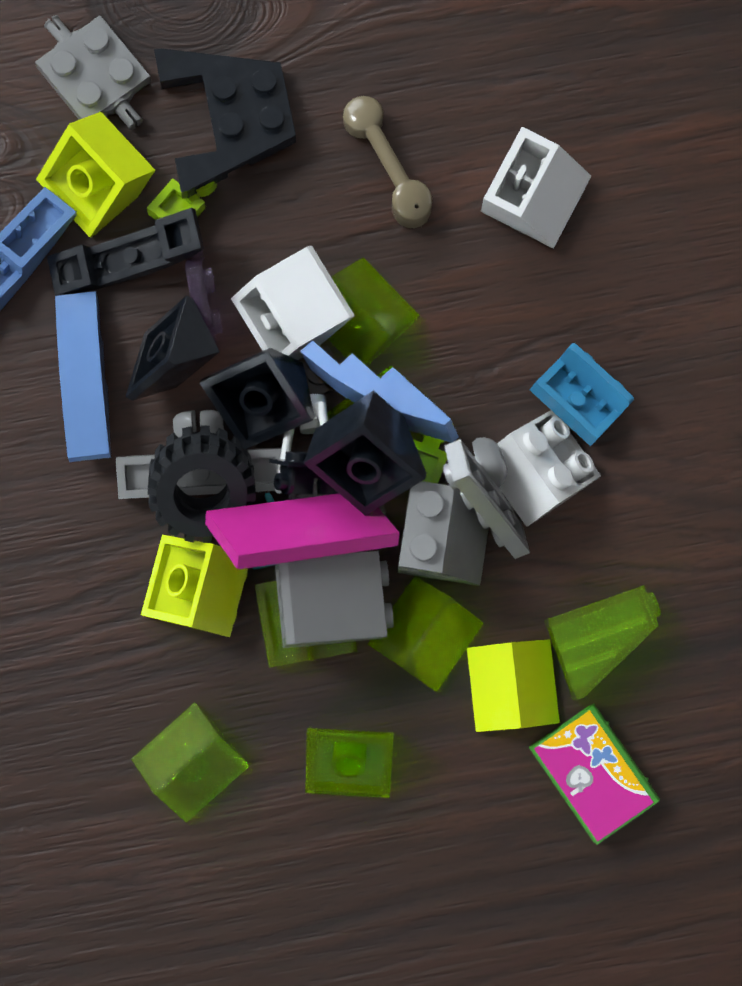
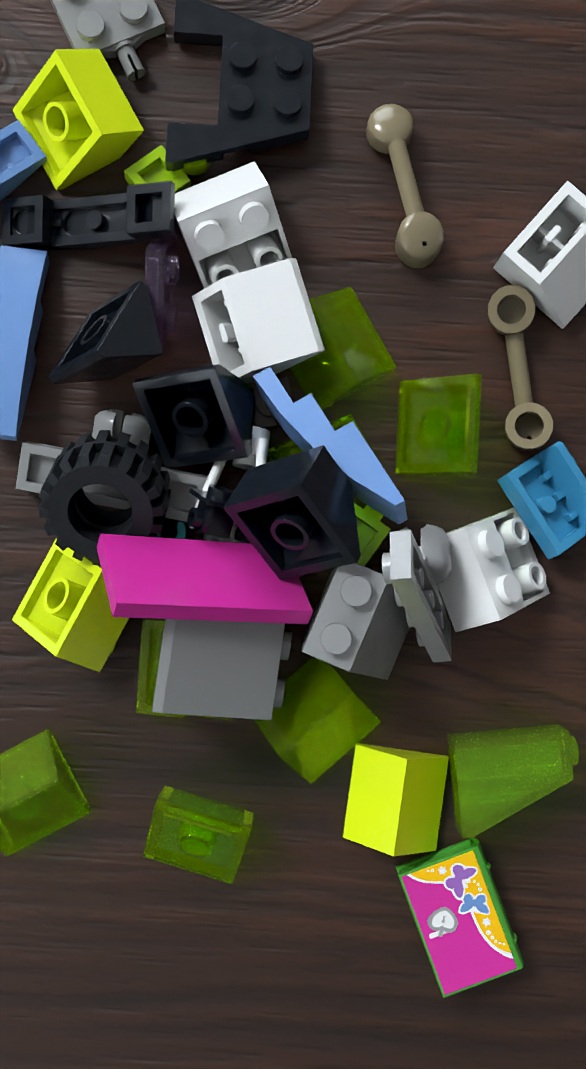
camera: 15 degrees right, 5 degrees up
(248, 231) = (230, 224): none -> white slope
(467, 357) = (439, 426): none -> clear neon green slope
(506, 248) = (510, 315): none -> dark tan piece

